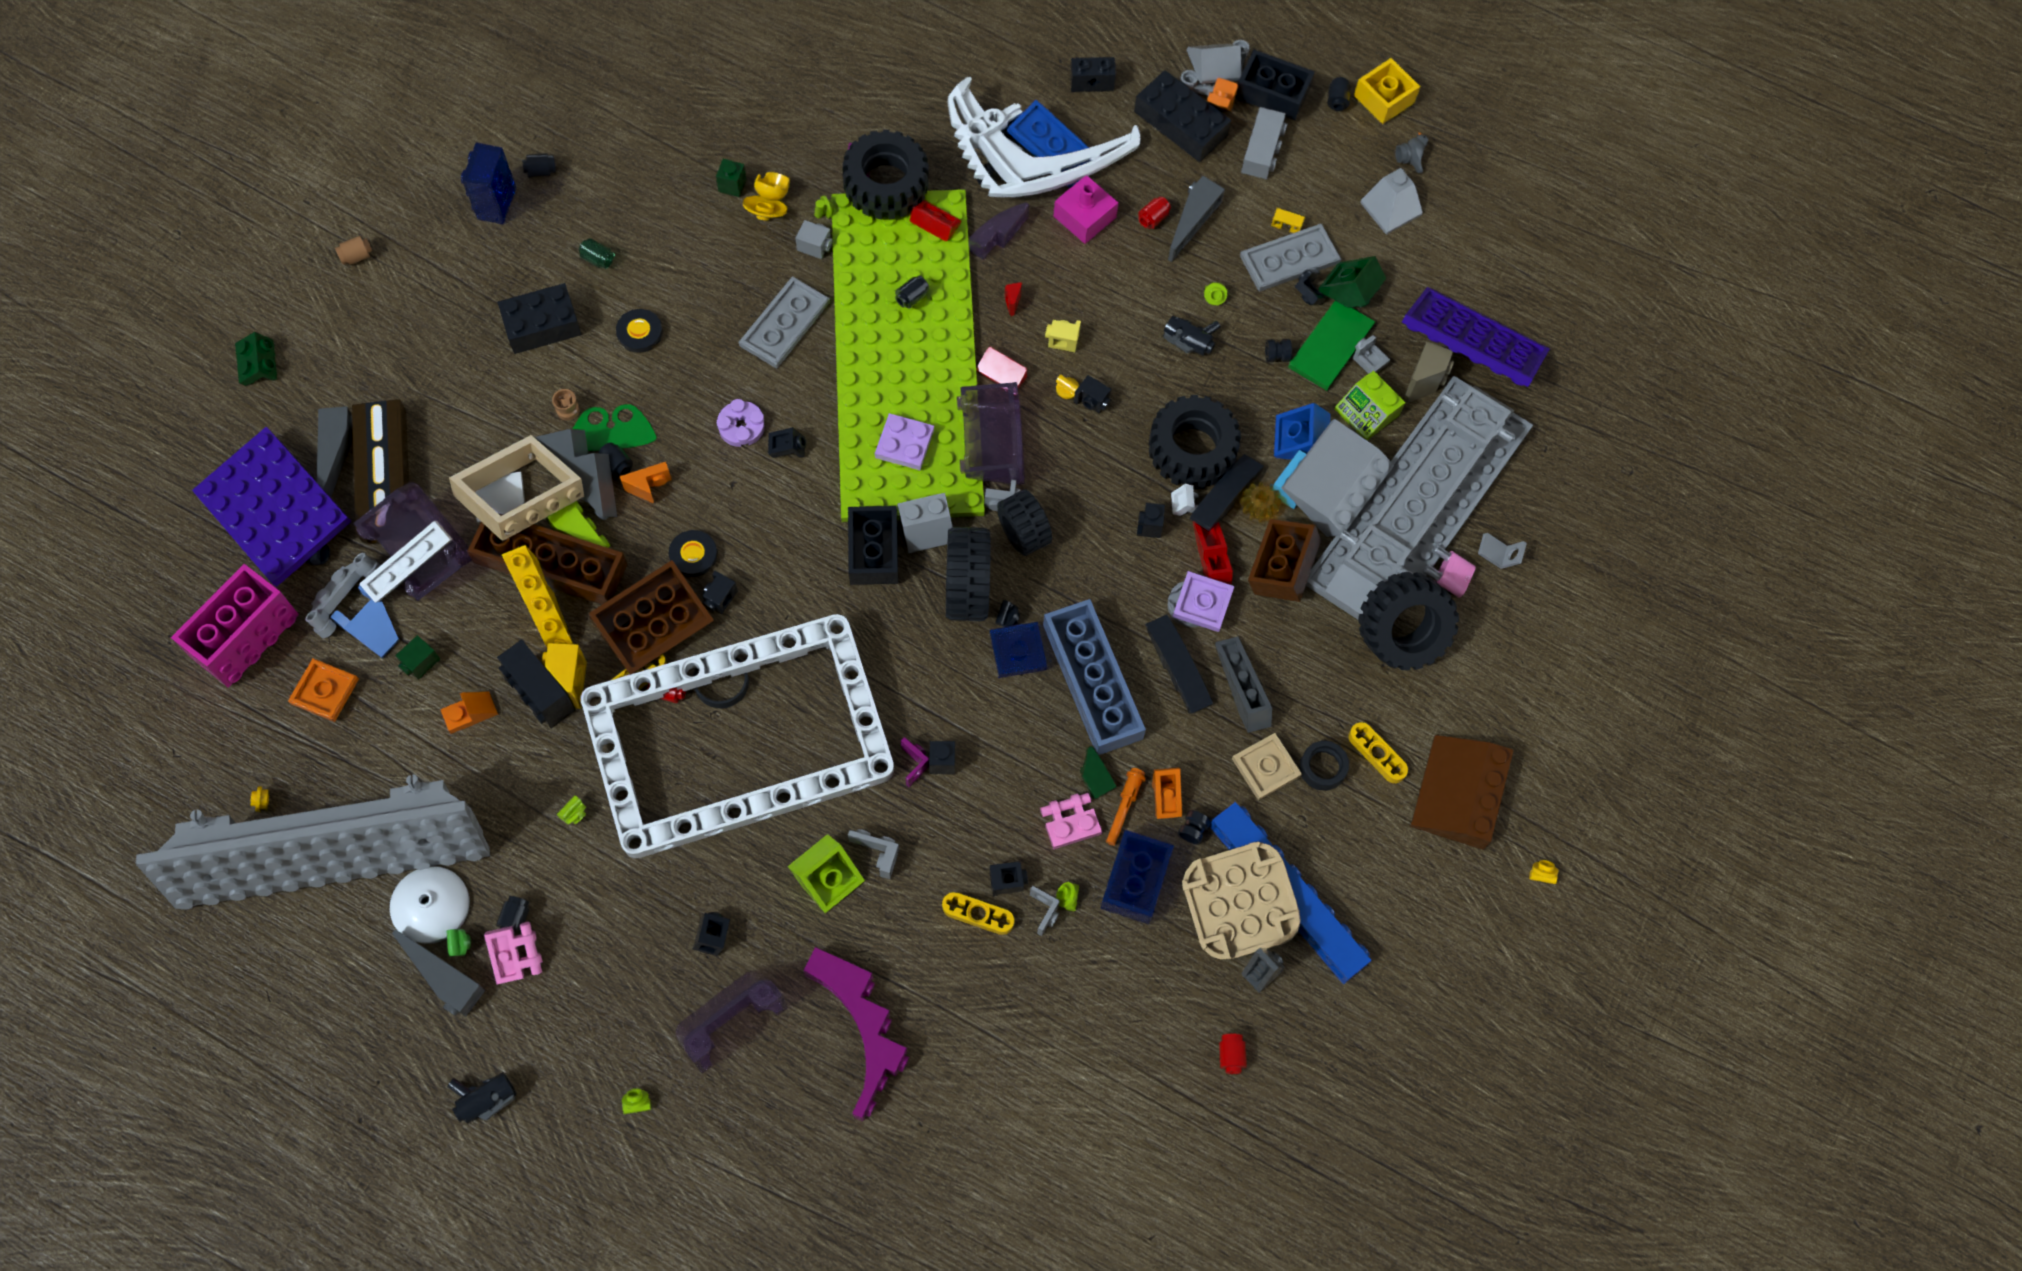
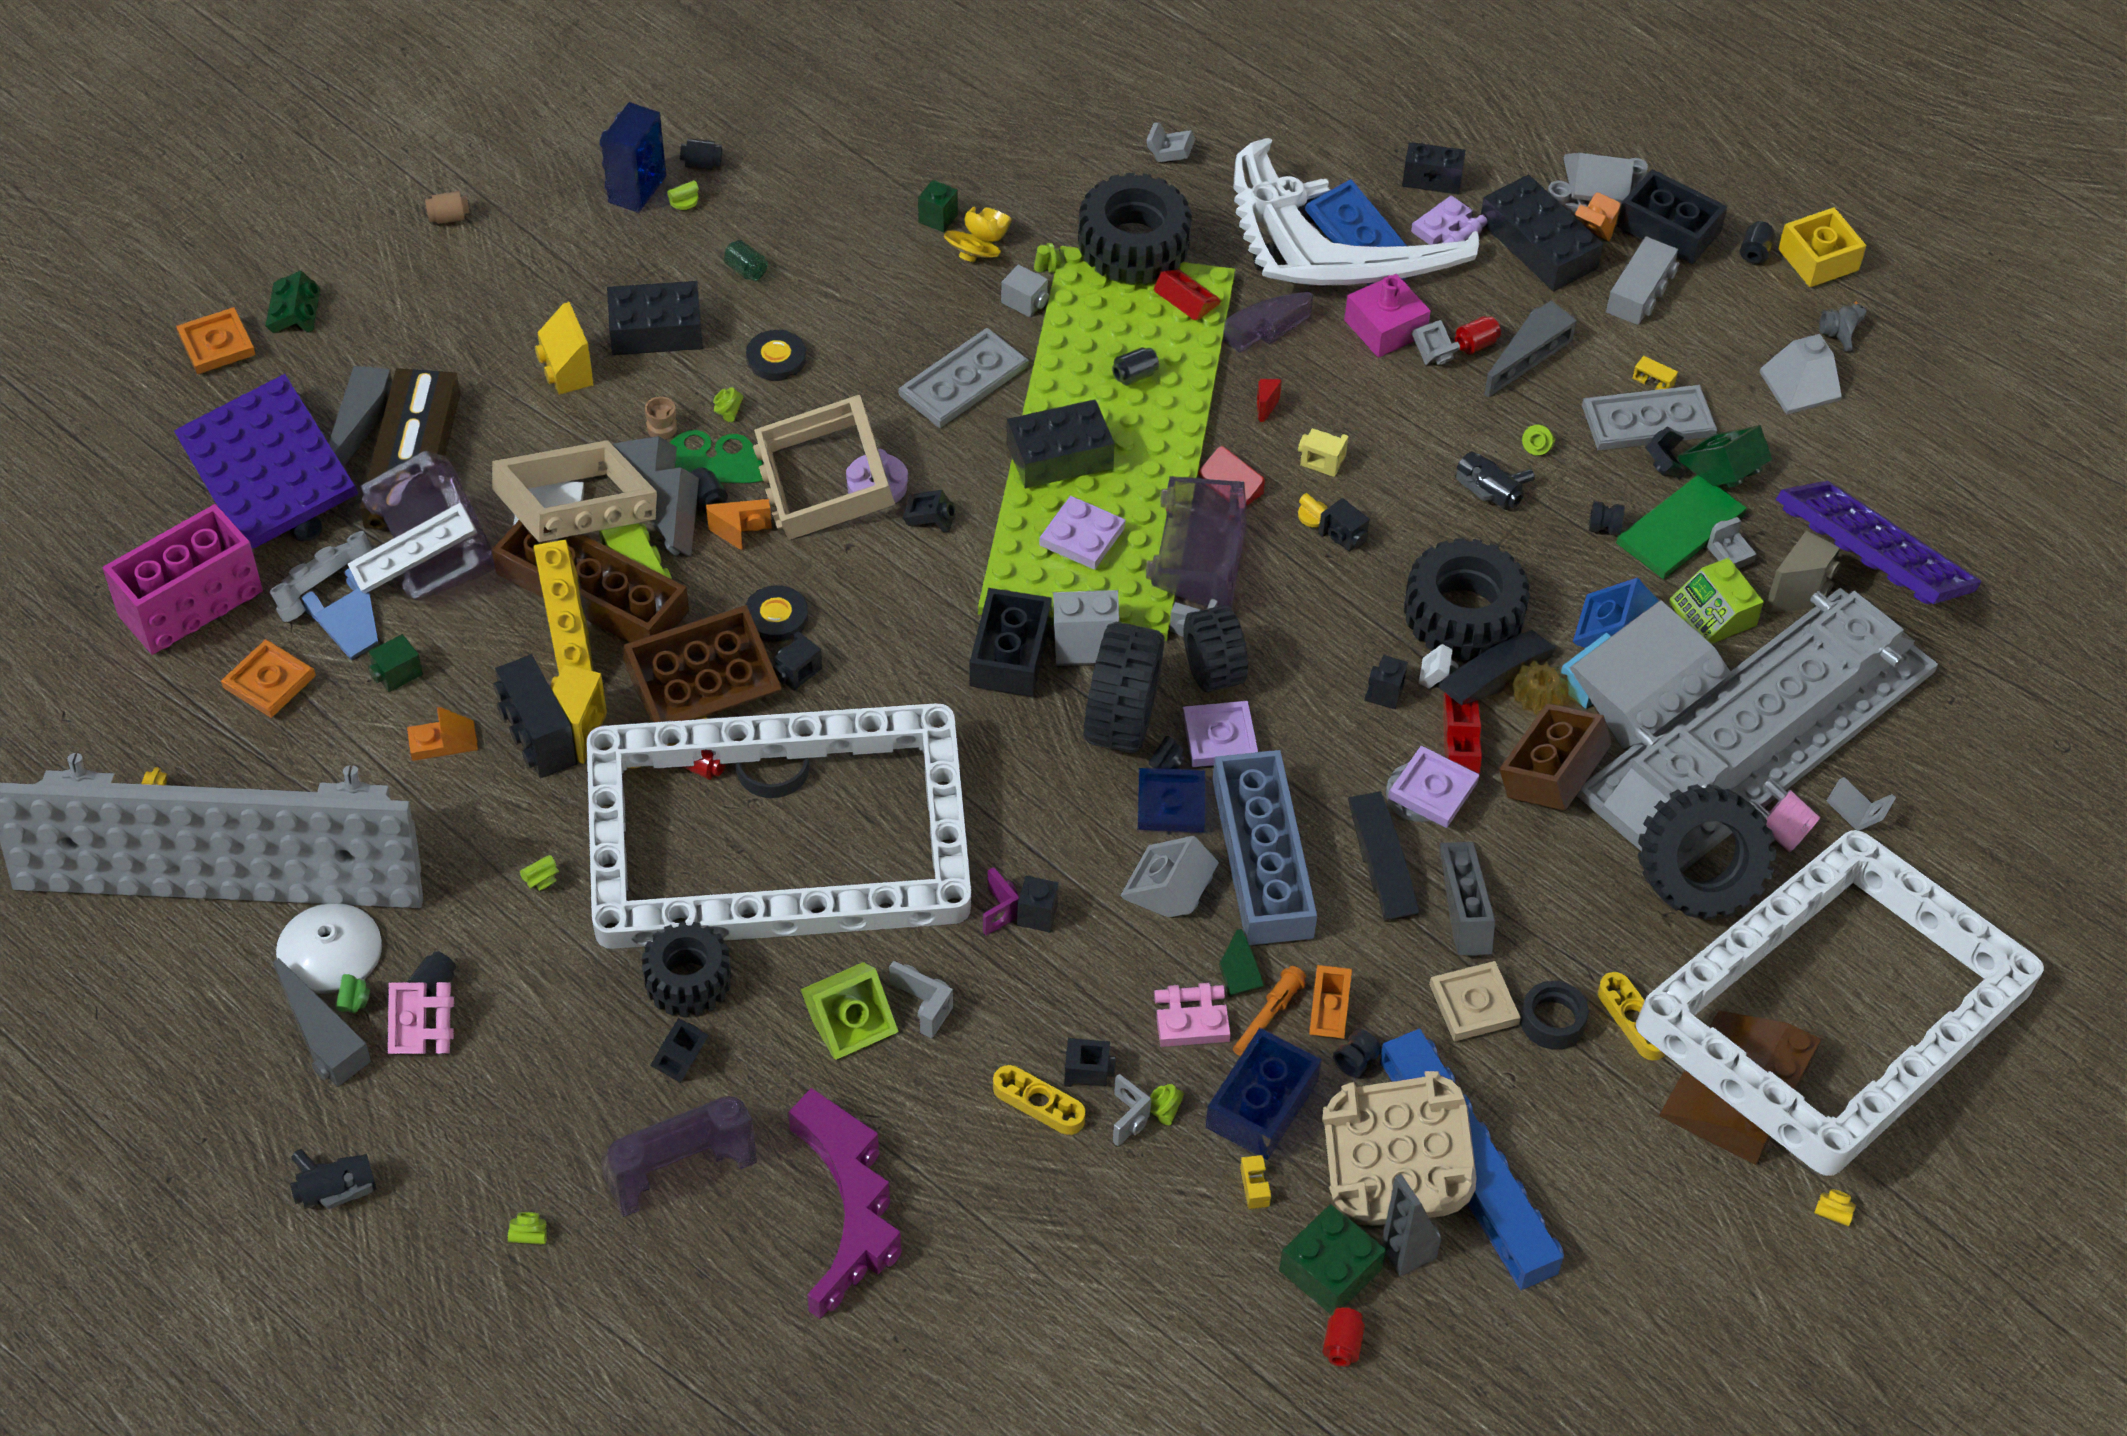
camera: 15 degrees right, 15 degrees down
(203, 404) = (215, 340): none -> orange plate
(478, 363) = (564, 351): none -> yellow slope
(535, 204) = (684, 196): none -> lime plate
(613, 380) = (728, 403): none -> lime plate
(677, 393) = (807, 427): none -> tan window
(693, 849) = (683, 946): none -> black tyre
(872, 371) = (1060, 443): none -> black brick
(892, 90) = (1169, 146): none -> light grey bracket
(1031, 714) = (1171, 877): none -> light grey slope
(1040, 587) = (1218, 731): none -> lavender plate
(1108, 116) = (1444, 219): none -> lavender plate
(1125, 226) = (1434, 343): none -> light grey bracket
(1143, 944) = (1255, 1187): none -> yellow piece
(1212, 996) = (1332, 1259): none -> dark green brick
(1577, 632) = (1764, 1098): none -> white beam

